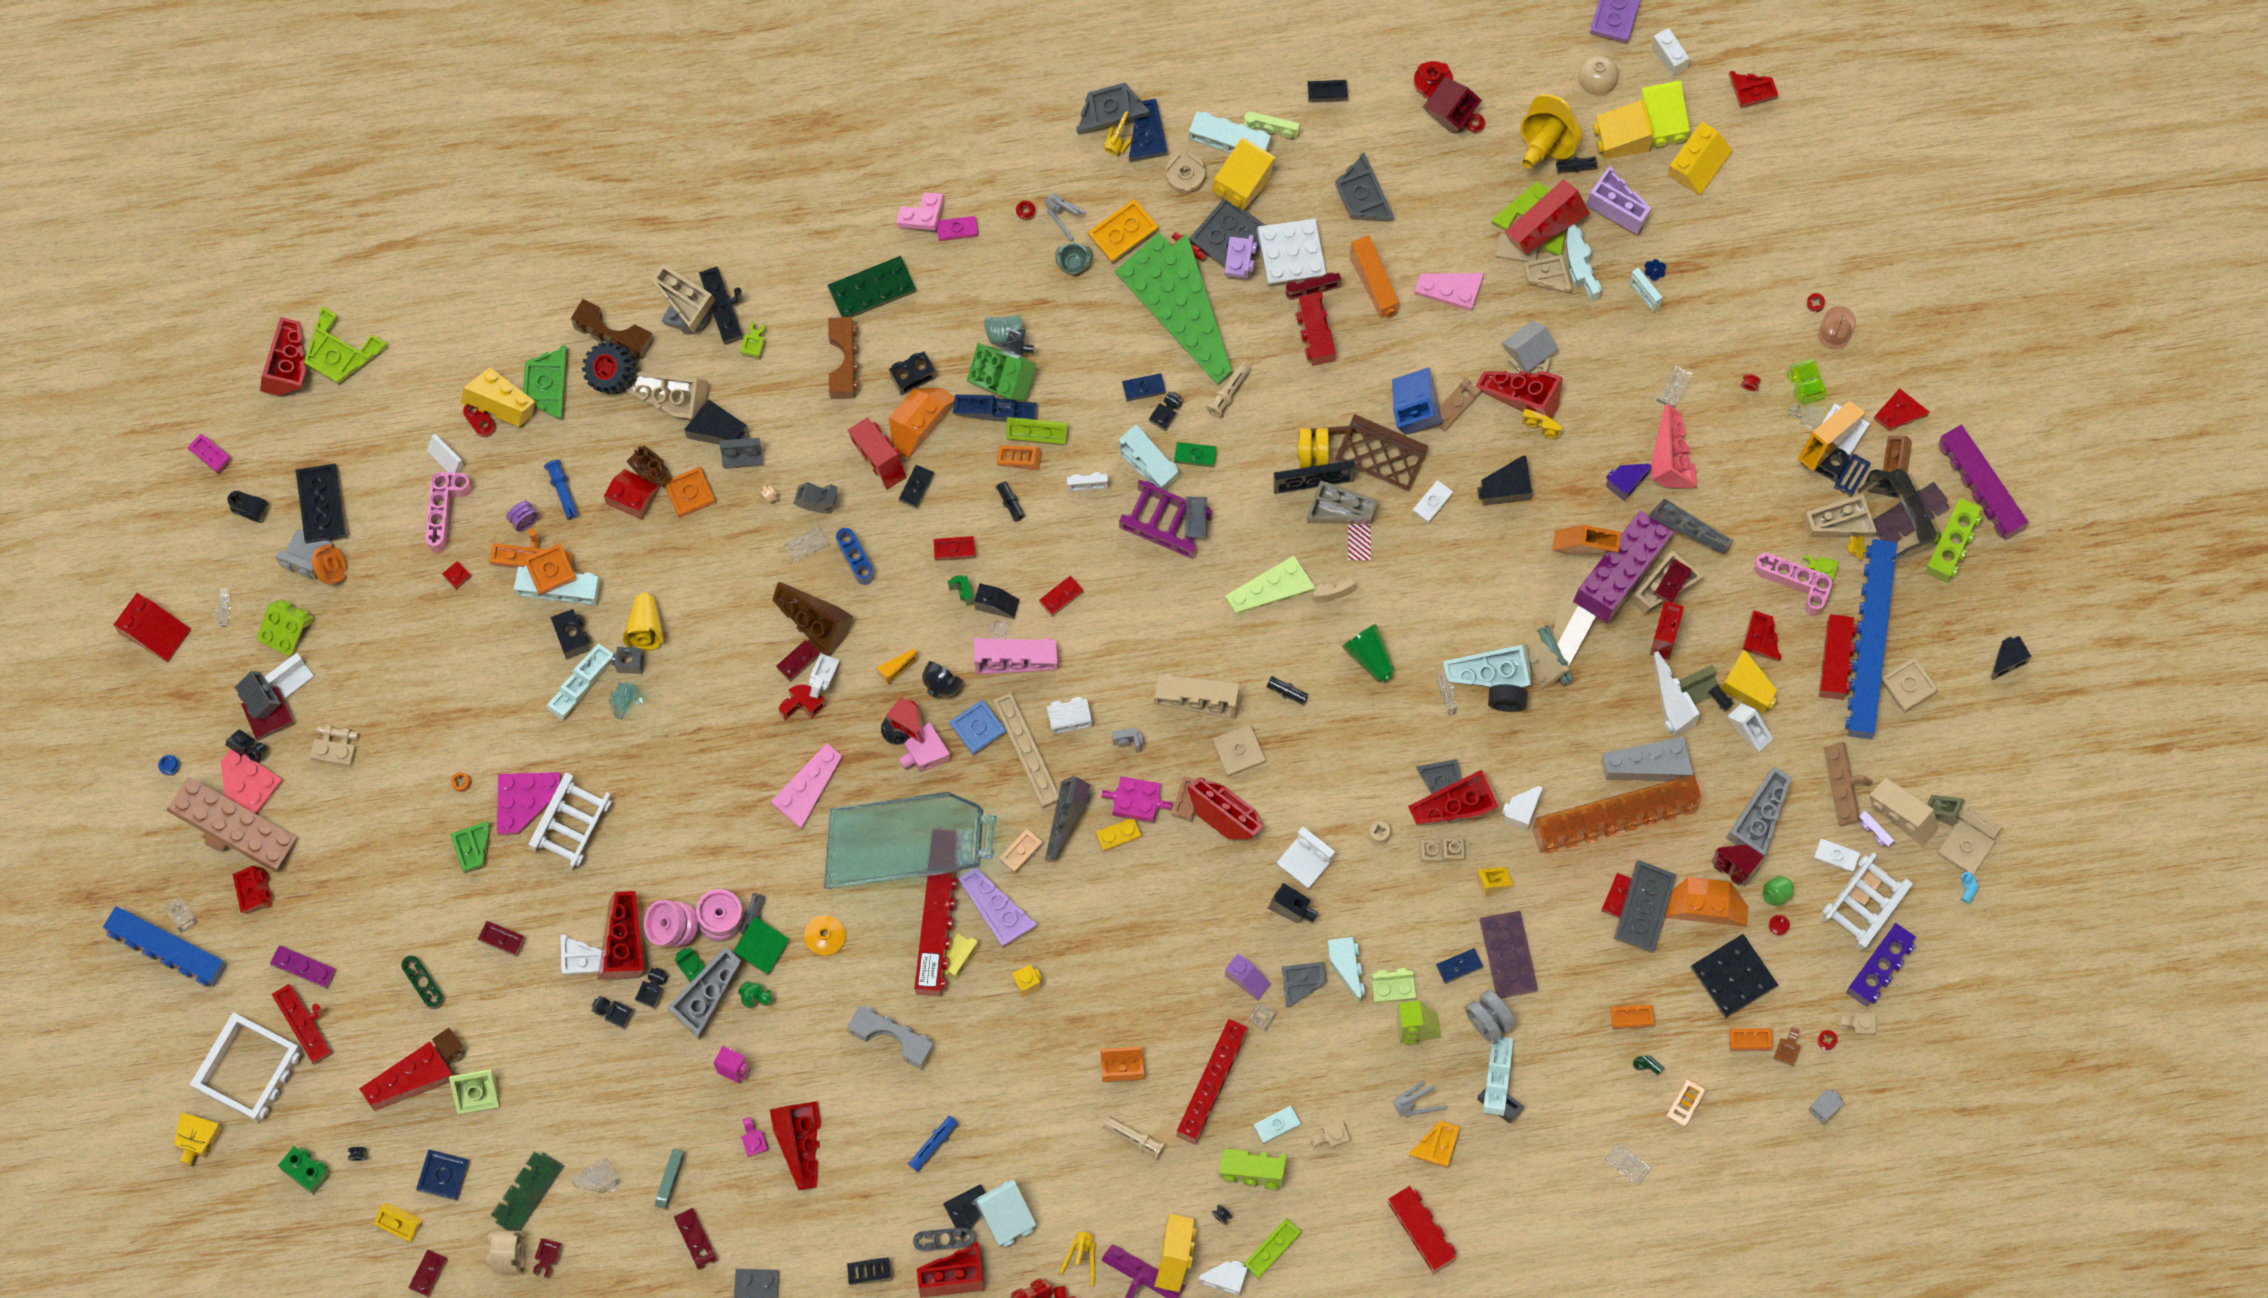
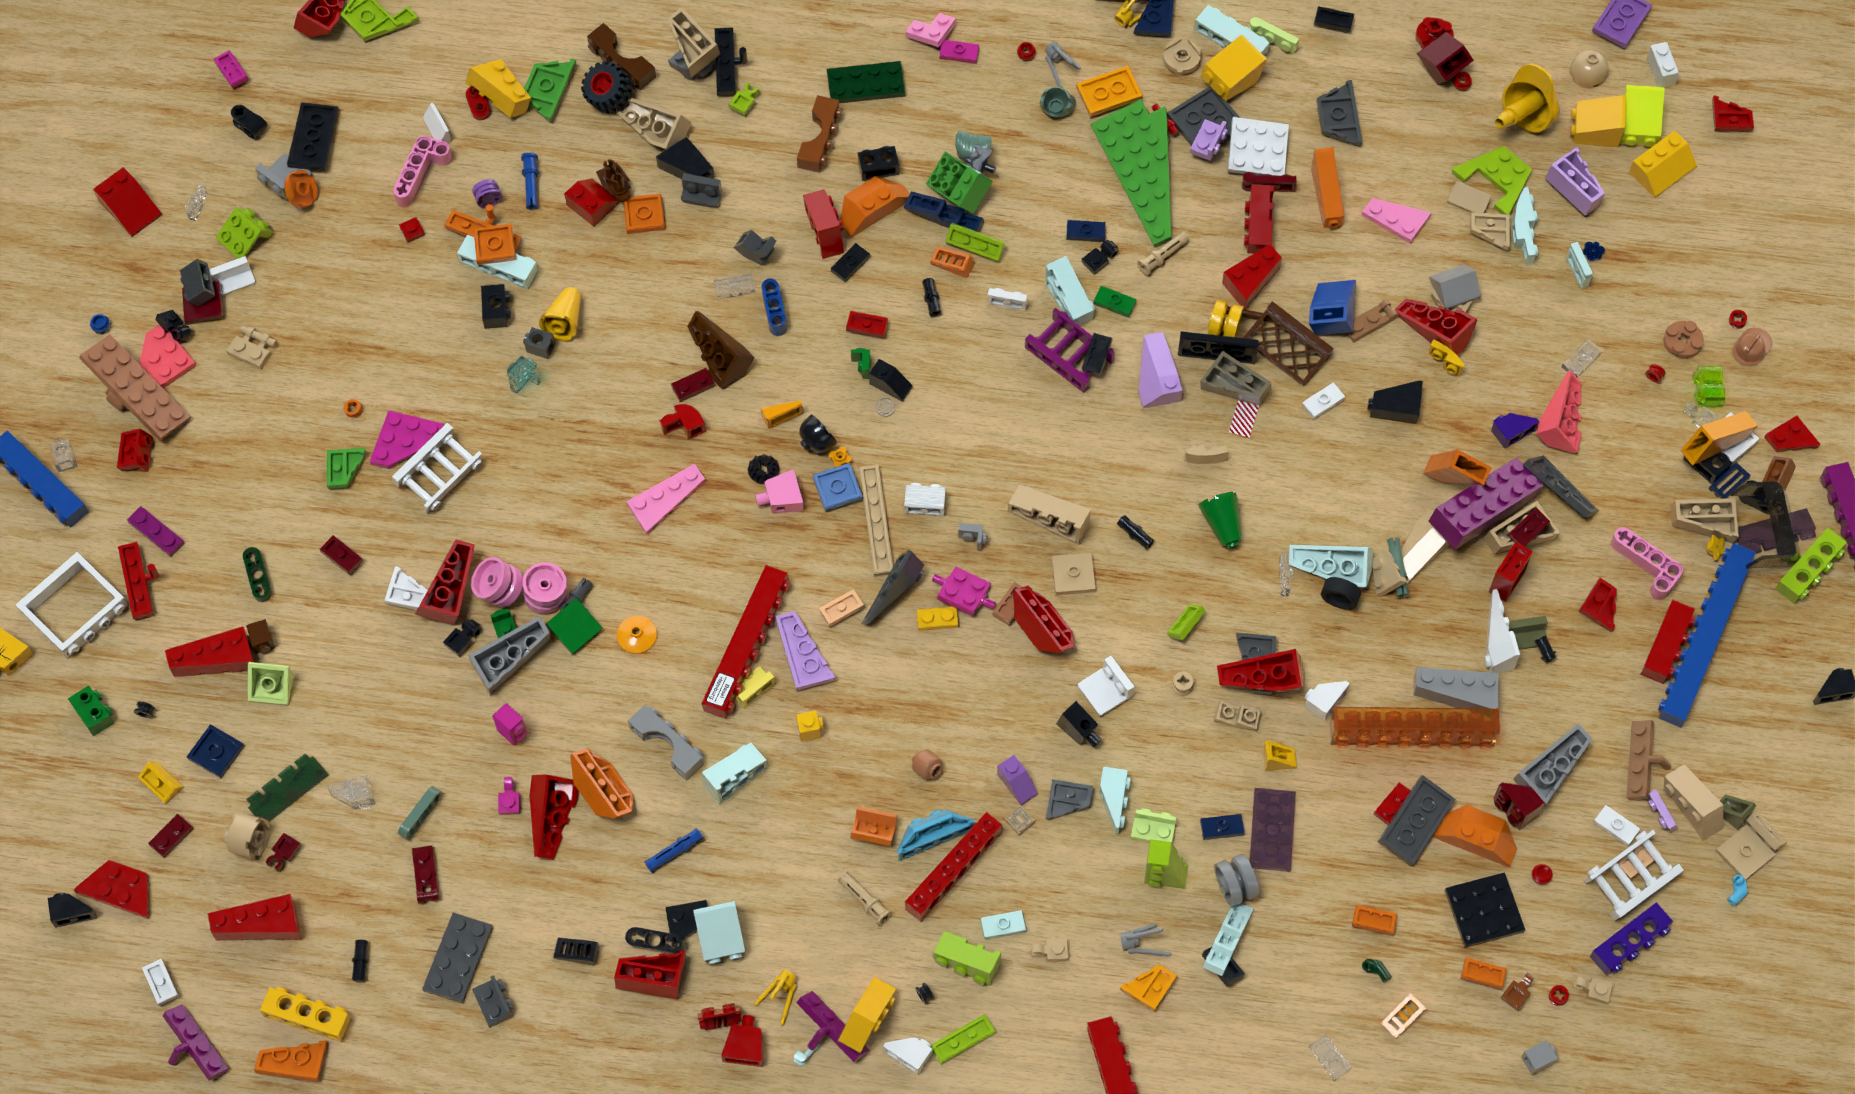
camera: 15 degrees right, 5 degrees down
(580, 682) = (490, 350): light aqua slope -> none
(616, 1014) = (422, 650): black plate -> none
(753, 993) = (553, 667): green animal -> none
(769, 493) = (715, 232): light nougat plate -> none
(822, 674) = (709, 401): white hinge -> none
(841, 1100) = (600, 785): none -> orange wedge
(905, 839) = (737, 564): clear light blue windscreen -> none
(907, 719) = (773, 460): slope -> none
(967, 1048) = (733, 772): none -> light aqua wedge
(976, 695) = (842, 451): none -> light orange plate
(1014, 655) = (890, 432): bright pink wedge -> none
(1061, 596) = (952, 392): red plate -> none
(1154, 986) = (927, 764): none -> nougat head
(1181, 1051) = (933, 831): none -> medium azure wedge
(1261, 519) = (1158, 375): none -> lavender wedge
(1278, 583) = (1157, 434): yellowish green wing -> none
(1324, 389) = (1251, 275): none -> red wedge
(1364, 769) = (1186, 622): none -> lime plate
(1548, 217) = (1505, 176): red wedge -> none
(1576, 164) = (1546, 140): black pin -> none
(1750, 684) = (1577, 644): yellow slope -> none
(1750, 726) = (1566, 683): white slope -> none
(1766, 349) = (1686, 329): none -> nougat plate
(1778, 891) = (1550, 841): bright green head -> none
(1822, 565) = (1678, 554): lime plate -> none
(1909, 684) = (1731, 686): tan plate -> none

